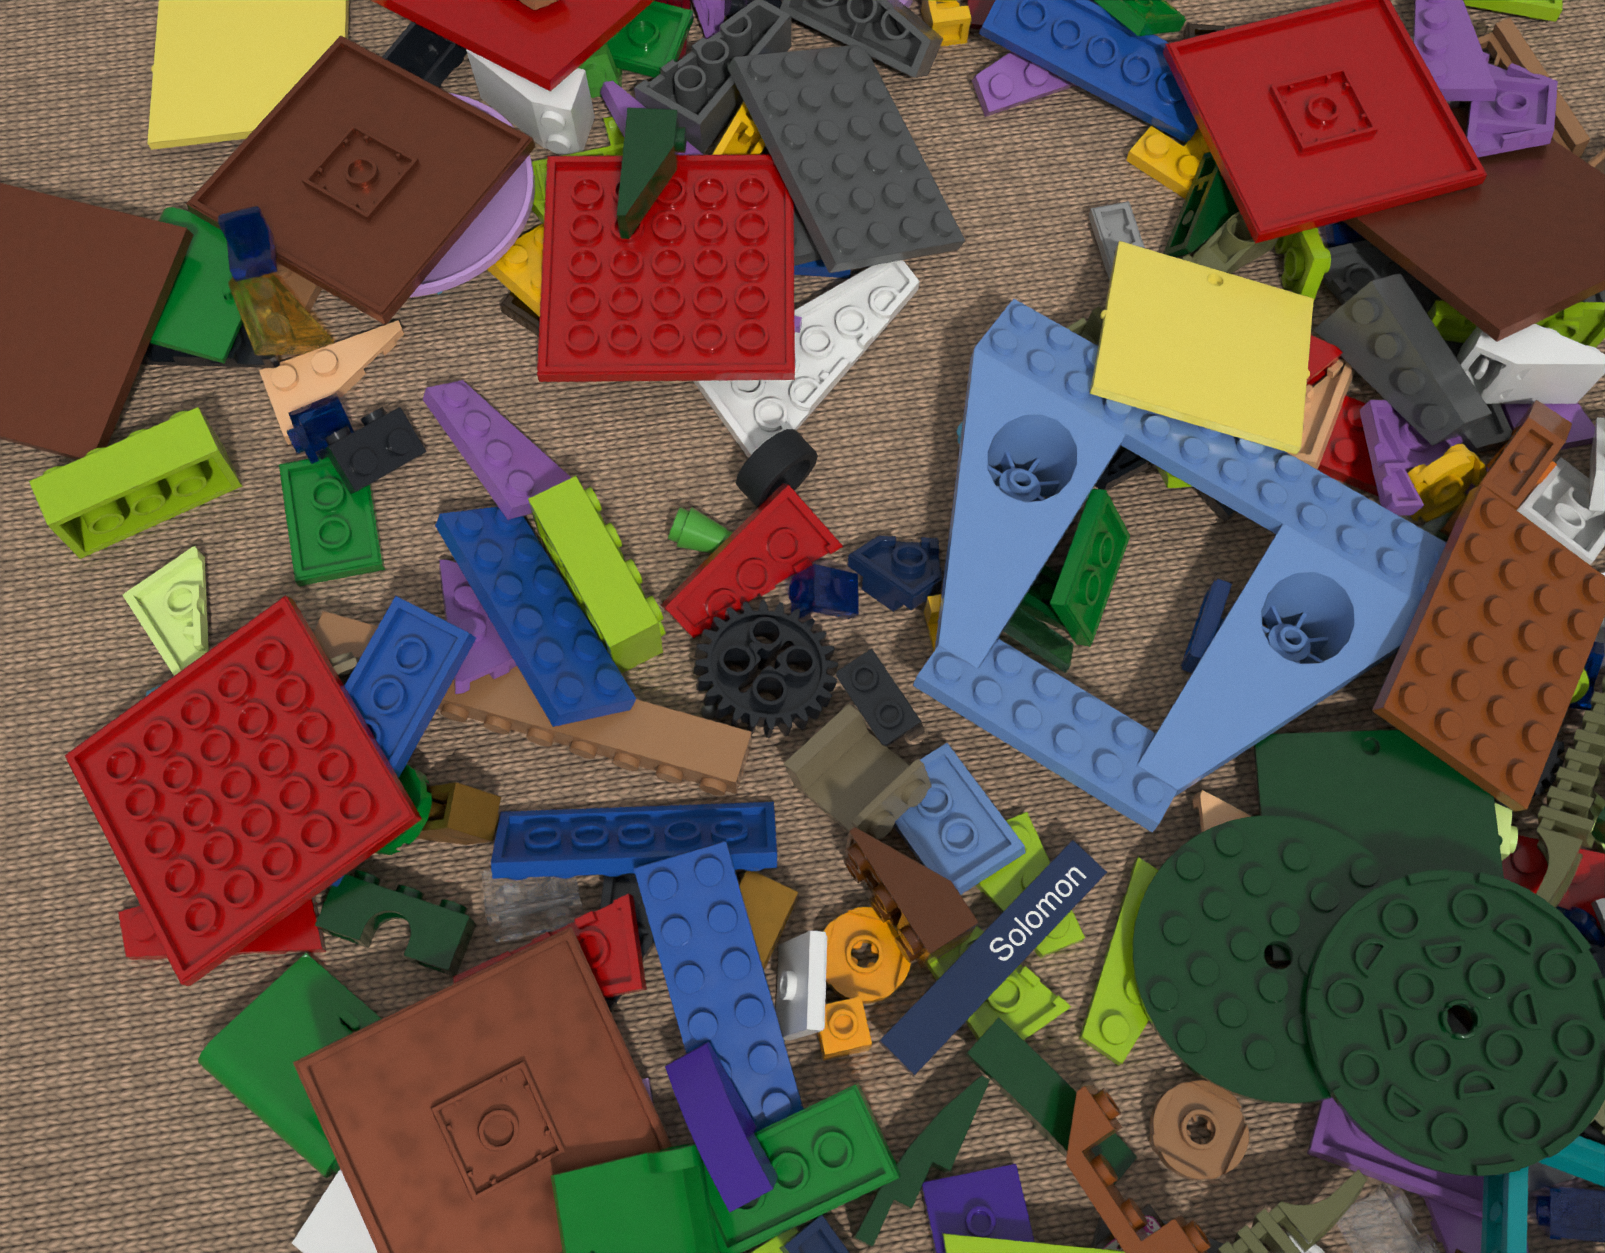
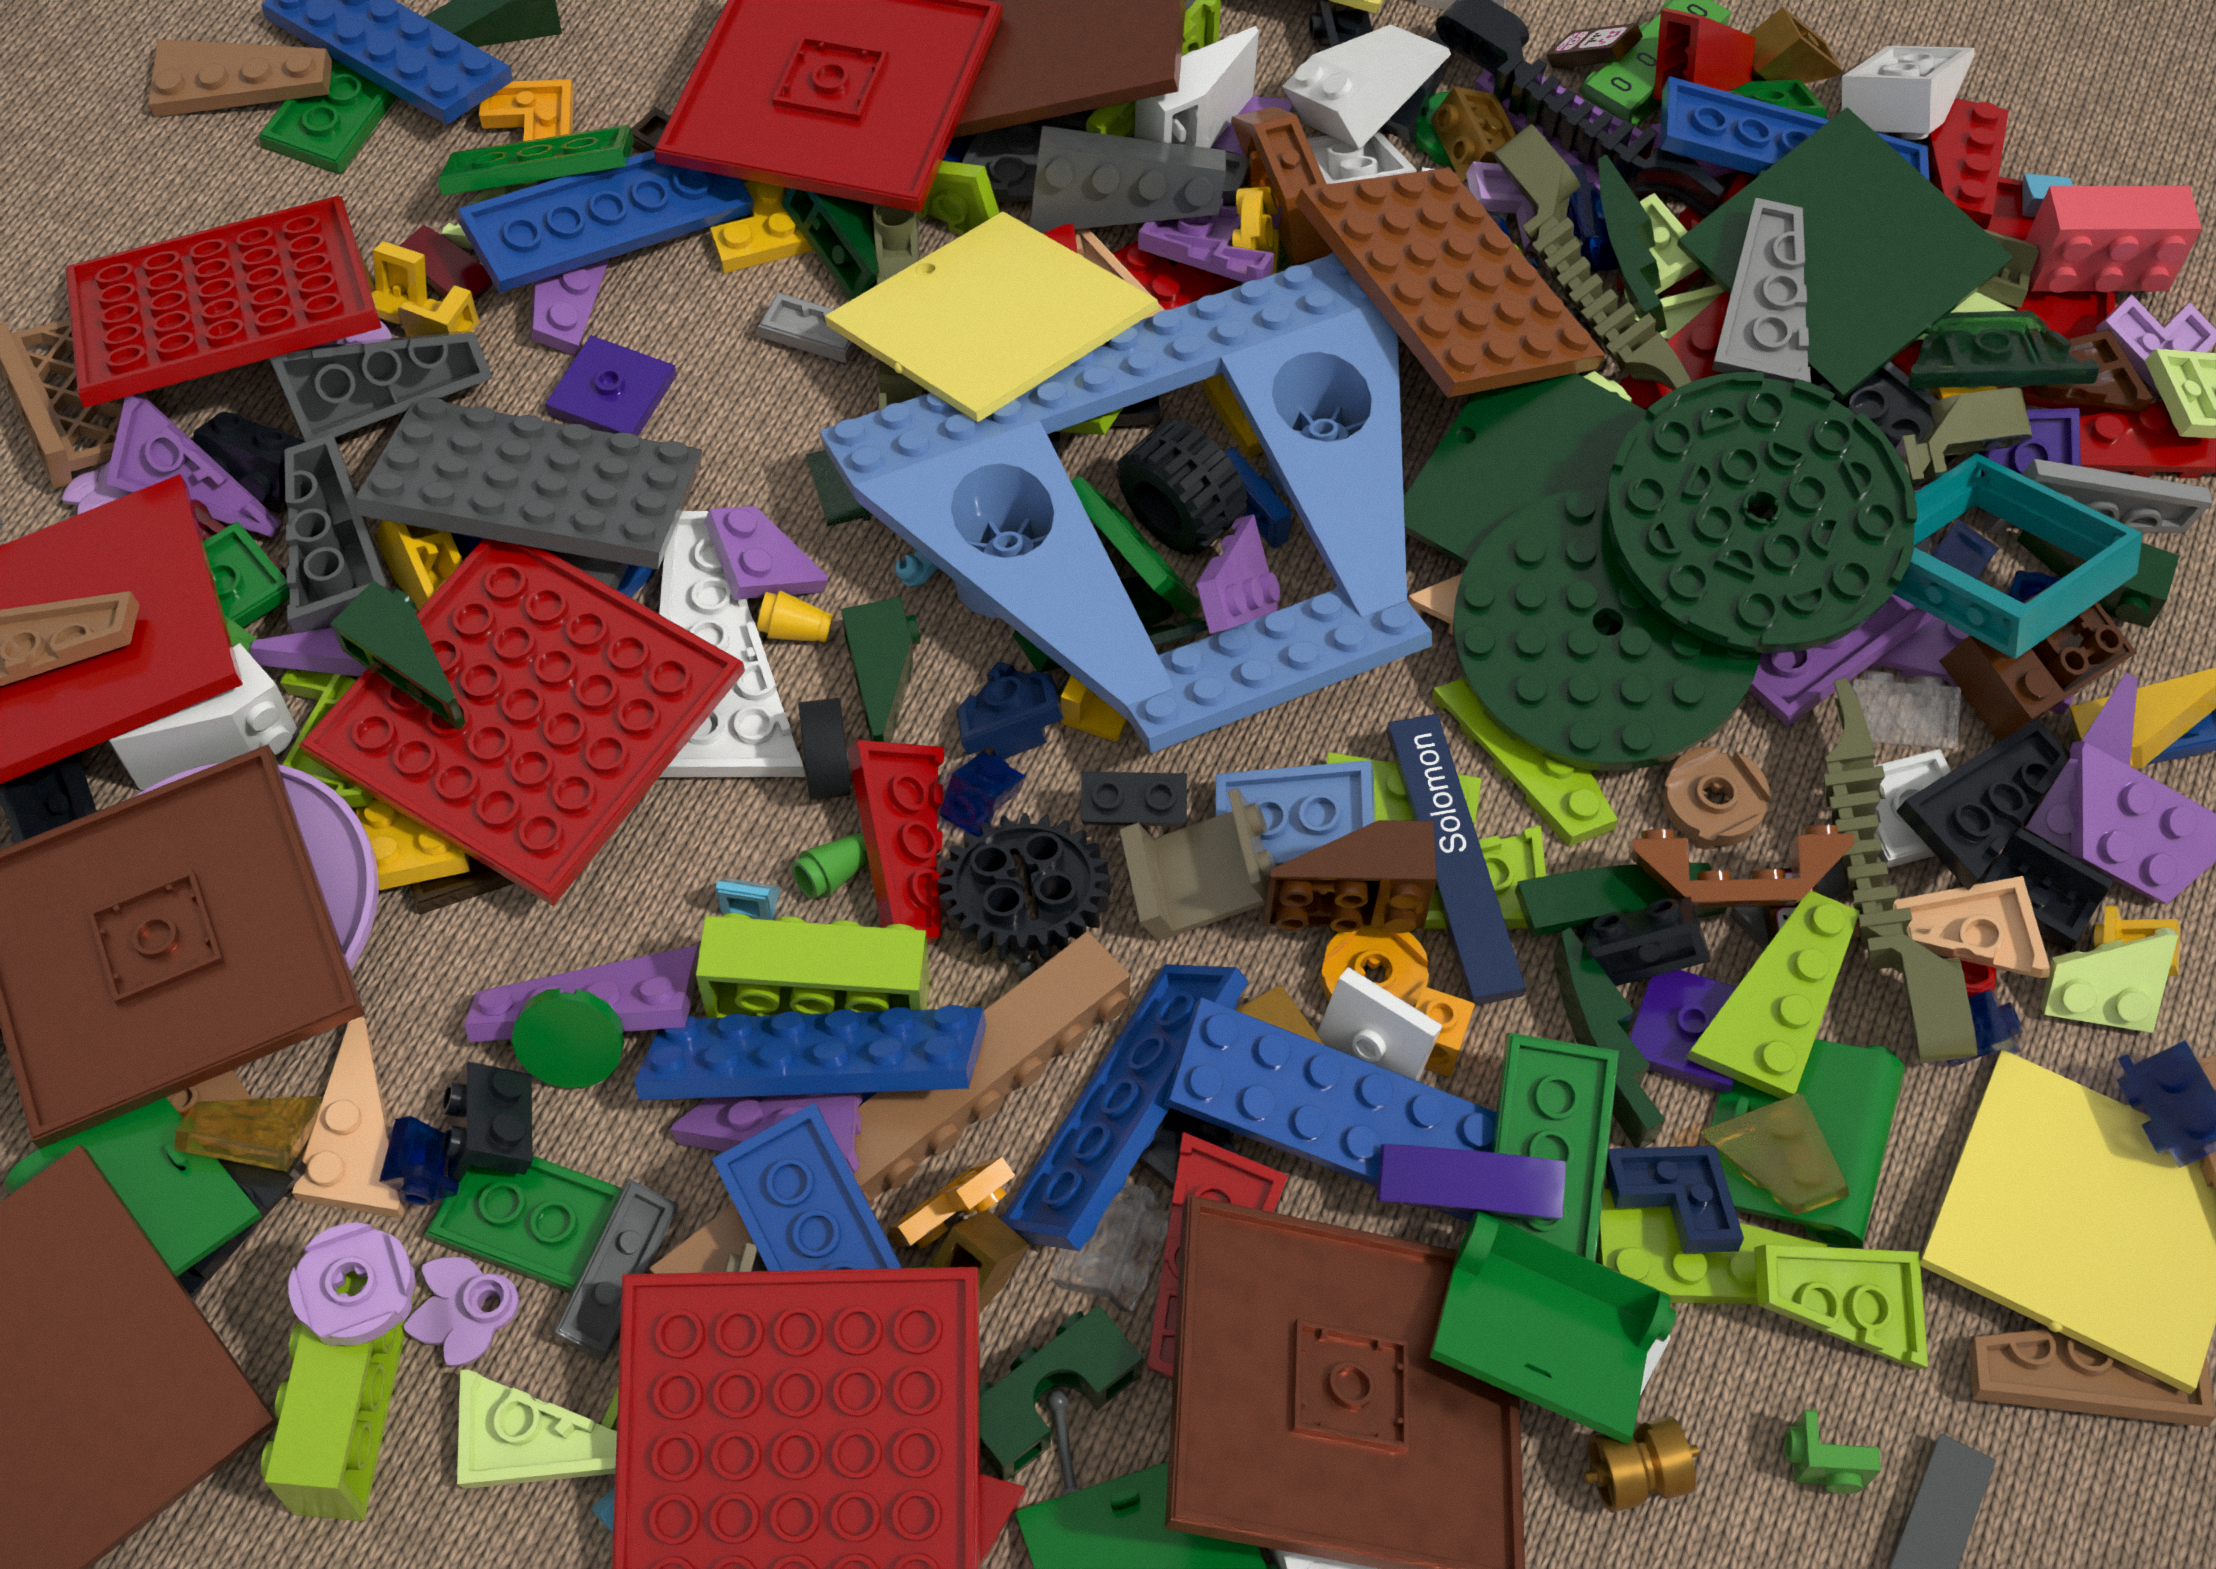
camera: 55 degrees left, 10 degrees down
(180, 464) = (361, 1317): none -> lavender plate
(241, 517) = (455, 1310): none -> lavender plate
(248, 243) = (158, 1089): clear blue bracket -> none
(328, 588) = (622, 1247): none -> dark grey tile
(399, 933) = (1057, 1402): none -> dark grey hinge
(454, 455) = (568, 1038): none -> green tile
(495, 774) = (970, 1191): none -> light orange plate
(642, 495) = (747, 898): none -> medium azure slope
(872, 384) = (793, 619): none -> yellow cone
(874, 465) = (882, 660): none -> dark green slope
(904, 331) = (759, 555): none -> medium lavender wing
(972, 155) = (611, 388): none -> dark purple plate
(1017, 1146) = (1647, 941): none -> black bracket
(1106, 660) = (1238, 582): none -> medium lavender wing
(1164, 569) = (1181, 487): none -> black tyre

